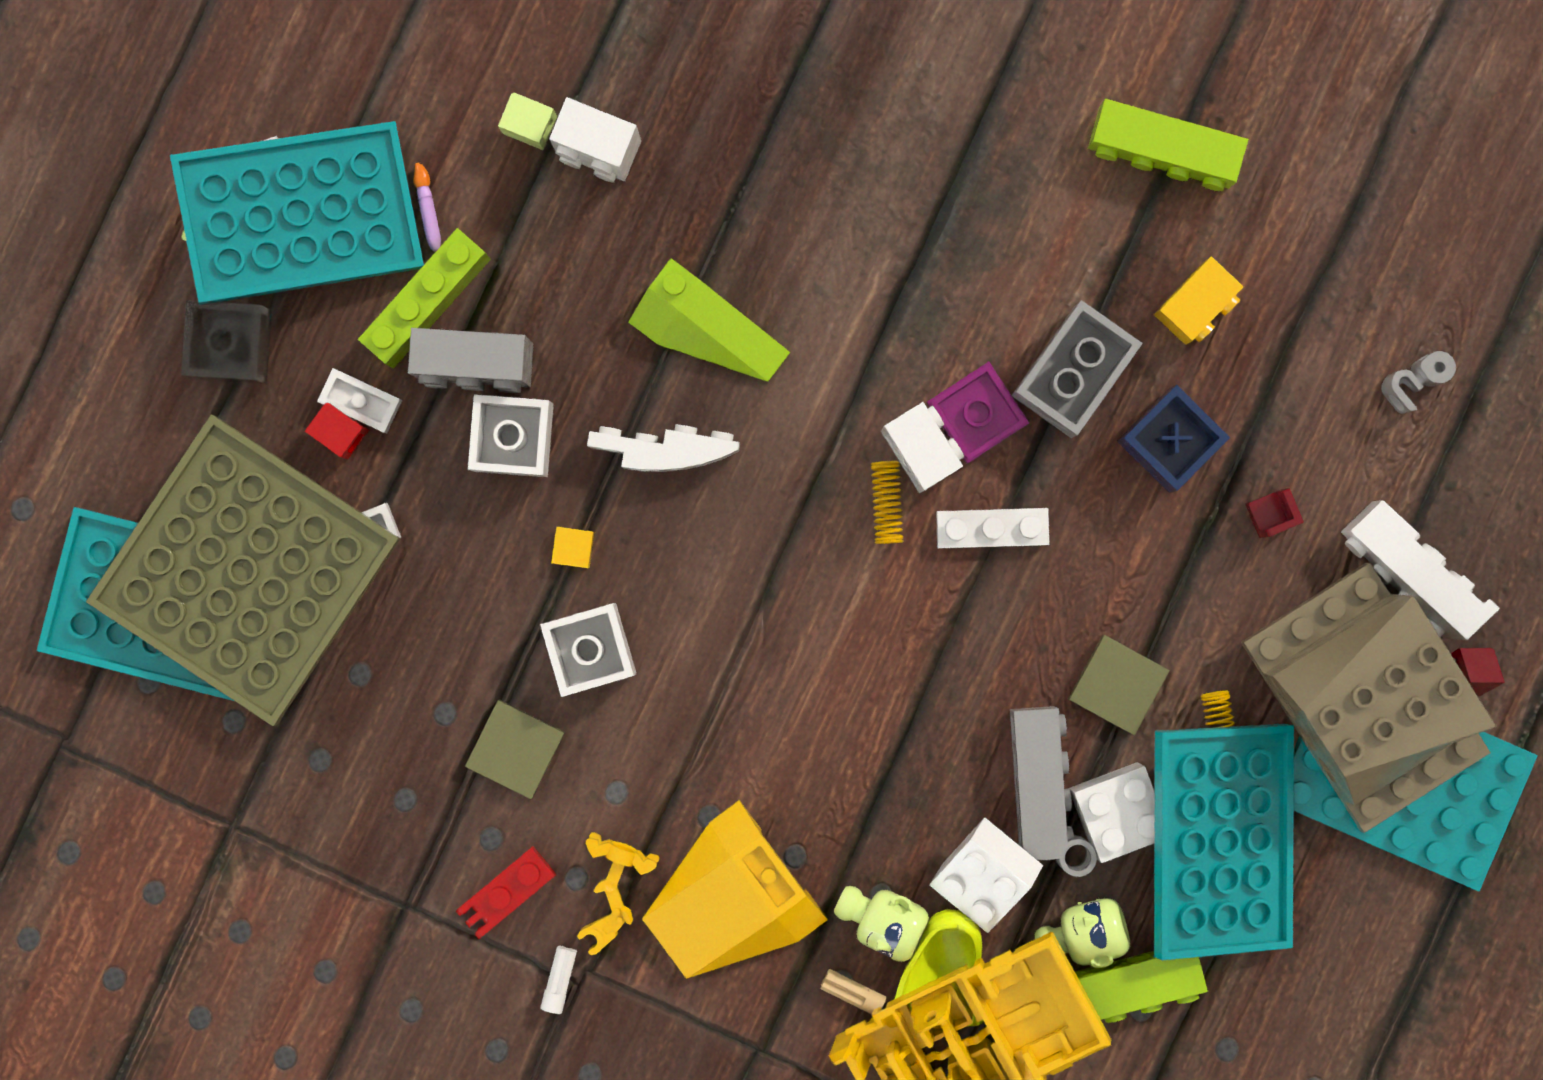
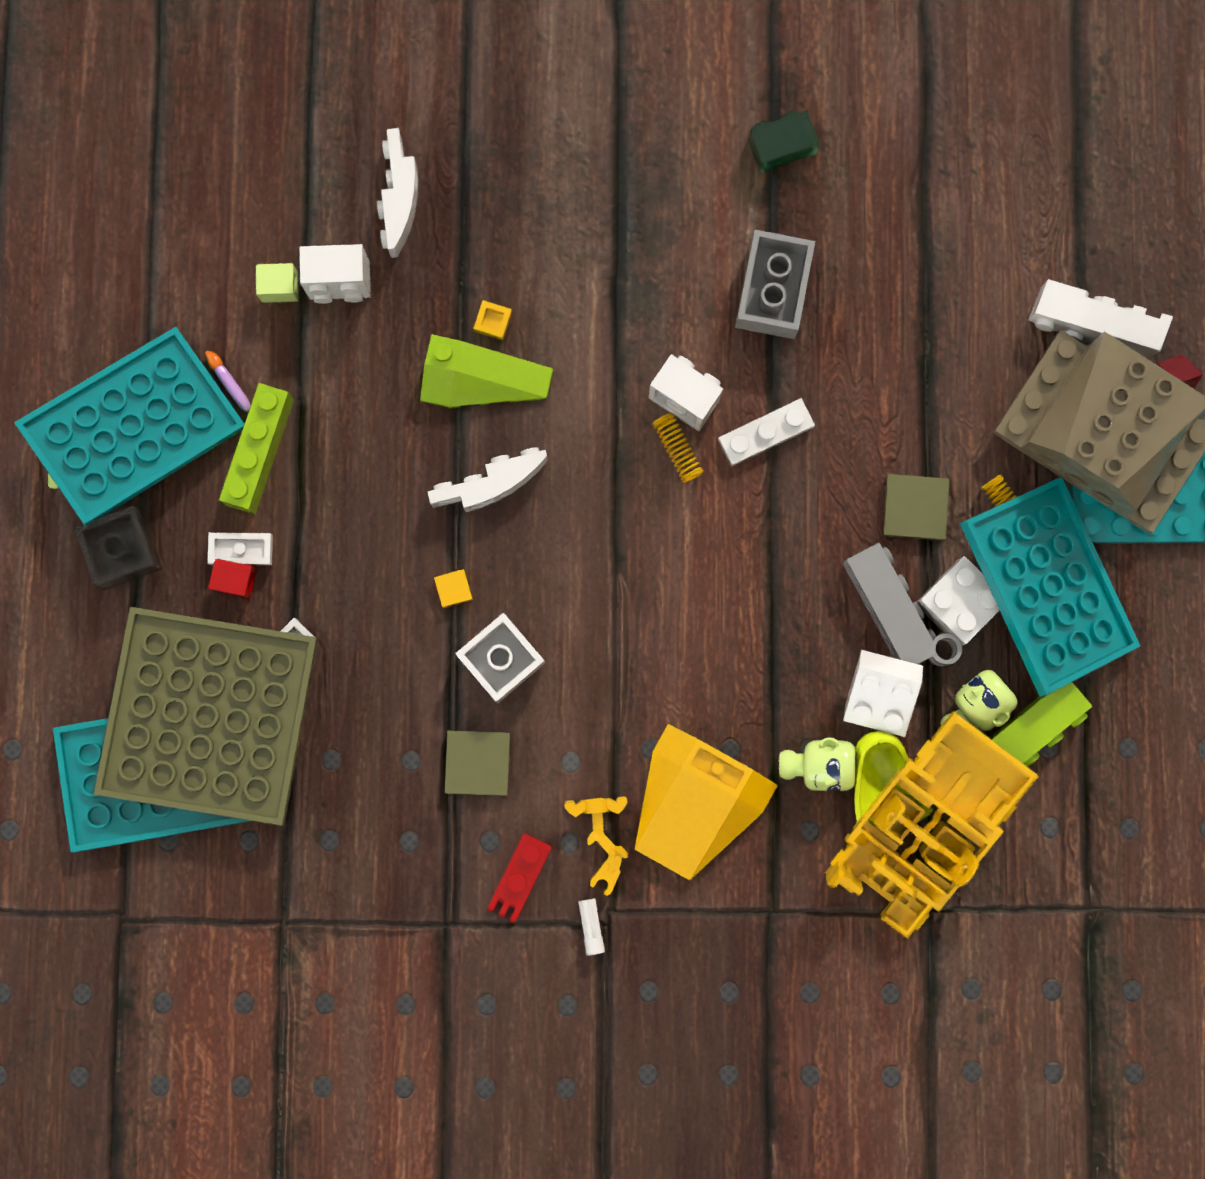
camera: 30 degrees left, 5 degrees down
(470, 359) = (312, 477): light grey brick -> none
(510, 435) = (368, 522): white brick -> none
(701, 92) = (400, 202): none -> white slope
(747, 268) = (492, 320): none -> yellow tile
(852, 992) = (822, 833): tan piece -> none
(978, 412) = (717, 348): magenta tile -> none
(1161, 209) = (783, 140): none -> clear green brick
(1168, 145) = (765, 92): lime brick -> none
(1173, 439) = (871, 303): dark blue brick -> none
(1199, 301) = (842, 195): yellow brick -> none
(1274, 513) = (972, 326): dark red panel -> none
(1426, 371) = (1035, 174): light grey leg -> none

